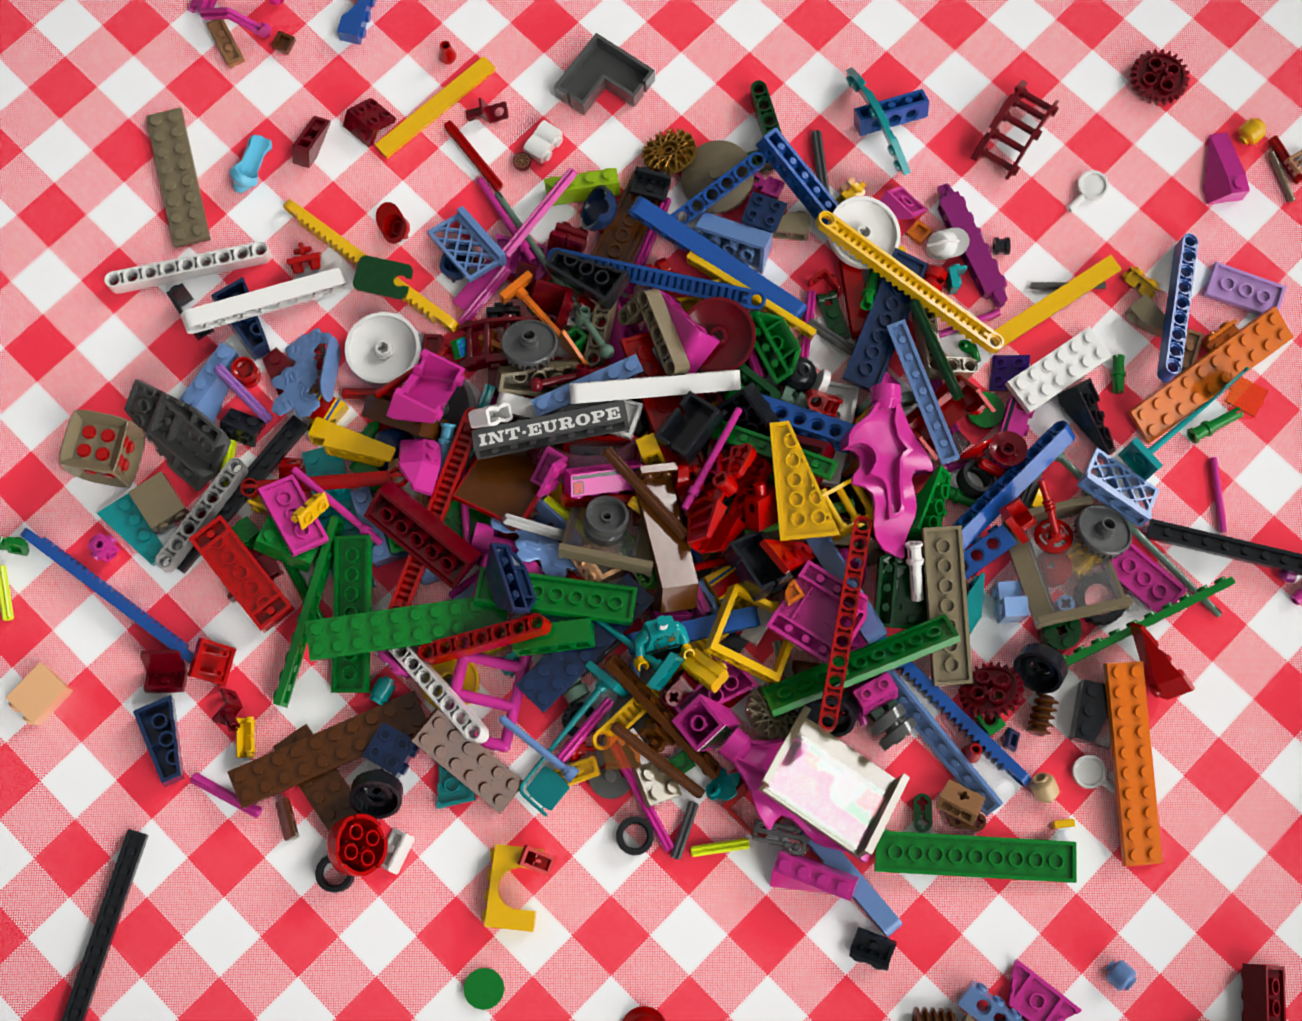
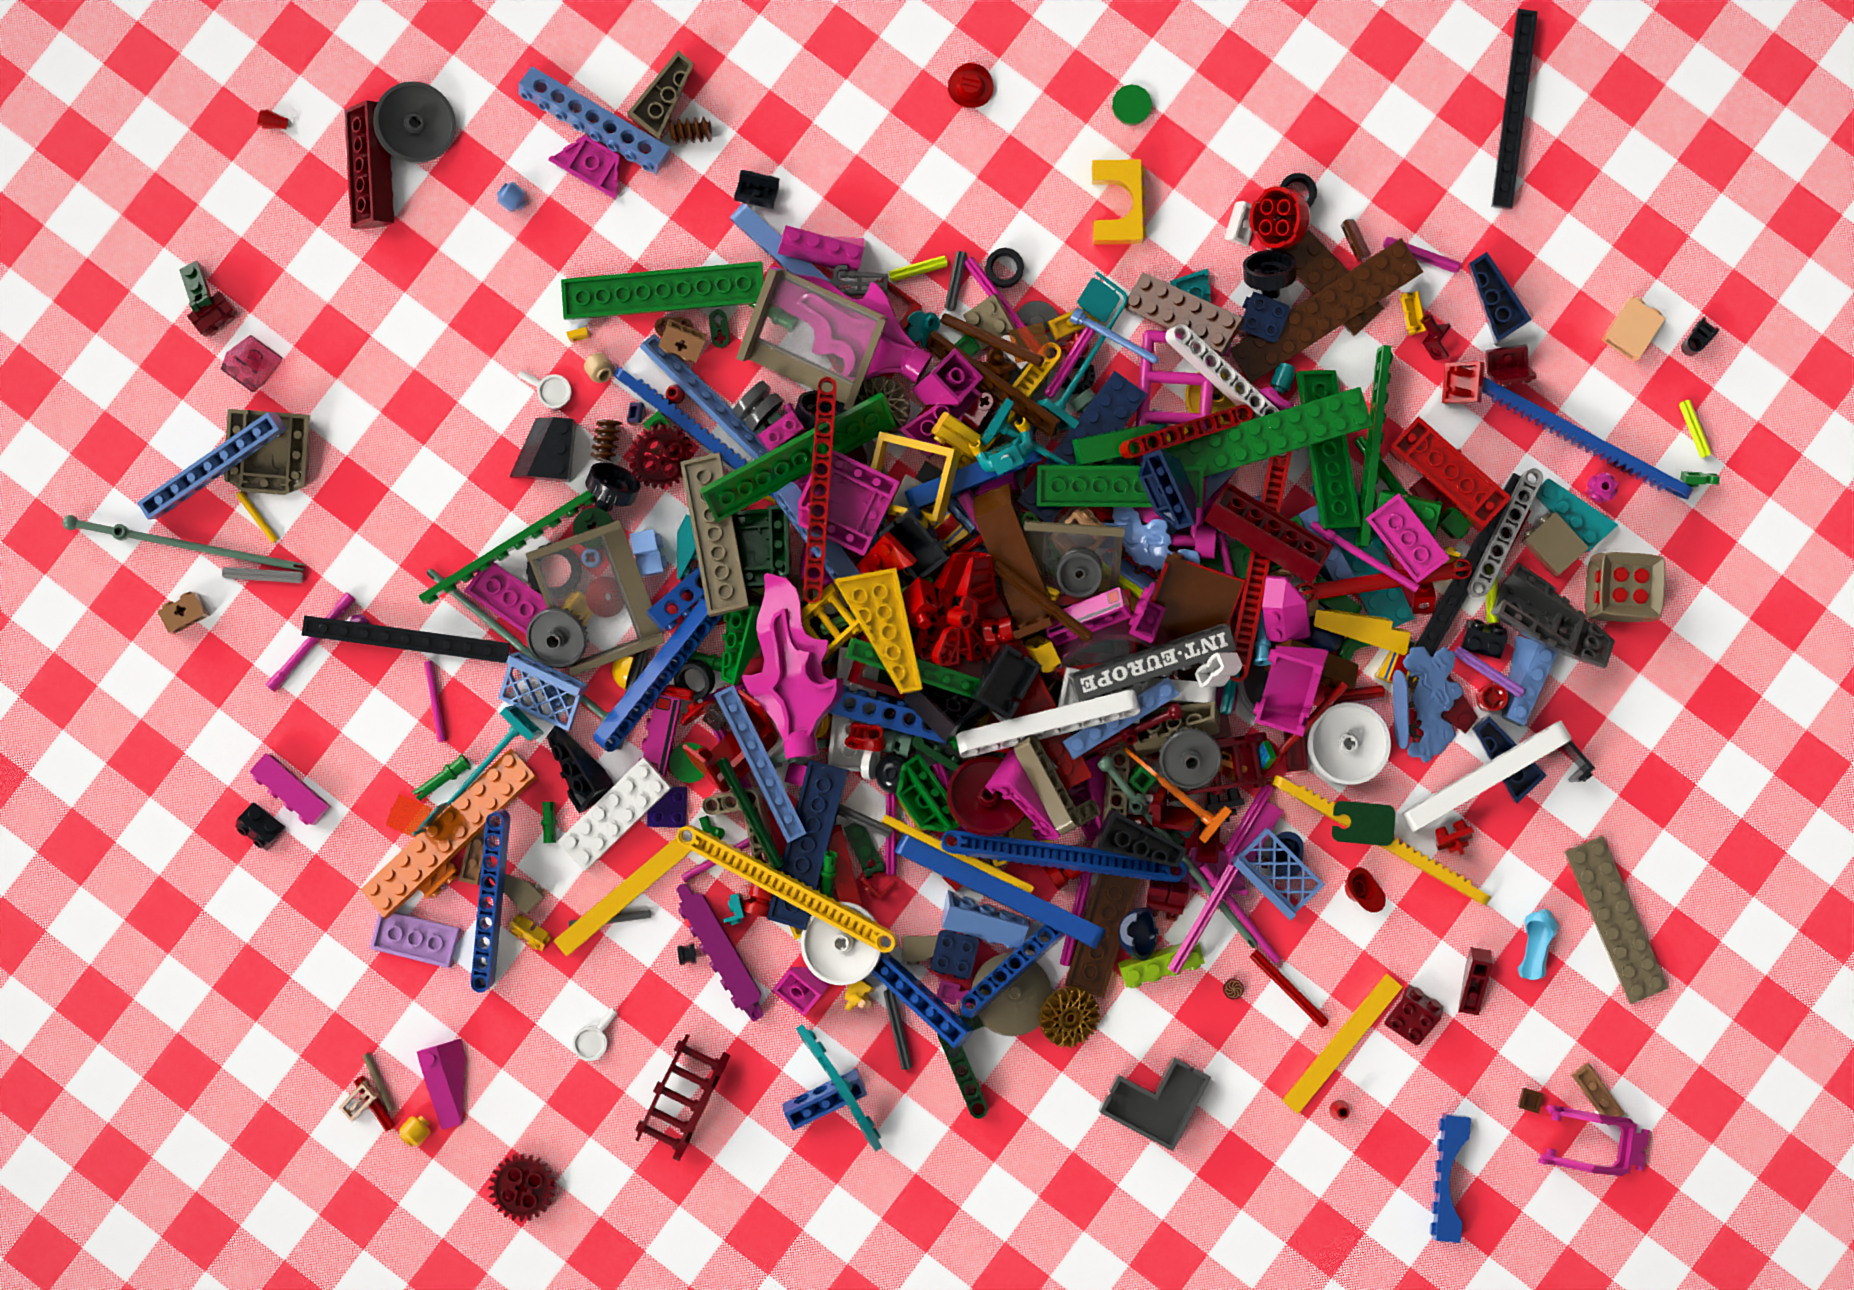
camera: 170 degrees right, 10 degrees up
(180, 264) = (1589, 807): white beam -> none
(314, 507) = (1394, 535): yellow hinge -> none
(487, 112) = (1282, 1043): dark red bracket -> none
(533, 526) = (1147, 557): light grey axle -> none
(536, 860) = (1099, 226): red slope -> none
(543, 141) = (1213, 1013): white brick -> none
(650, 184) = (1084, 971): black bracket -> none
(694, 490) = (992, 611): dark pink bar -> none
(793, 593) = (875, 519): orange tile -> none
(915, 563) = (752, 570): white pin -> none
(919, 232) = (779, 961): orange tile -> none
(947, 243) = (747, 947): white piece -> none
(1008, 441) = (659, 722): dark red dish -> none
(1018, 518) = (648, 637): red panel -> none
(1055, 527) = (610, 635): red dish -> none
(1132, 763) = (512, 403): orange plate -> none
(1159, 672) = (491, 498): red wedge -> none

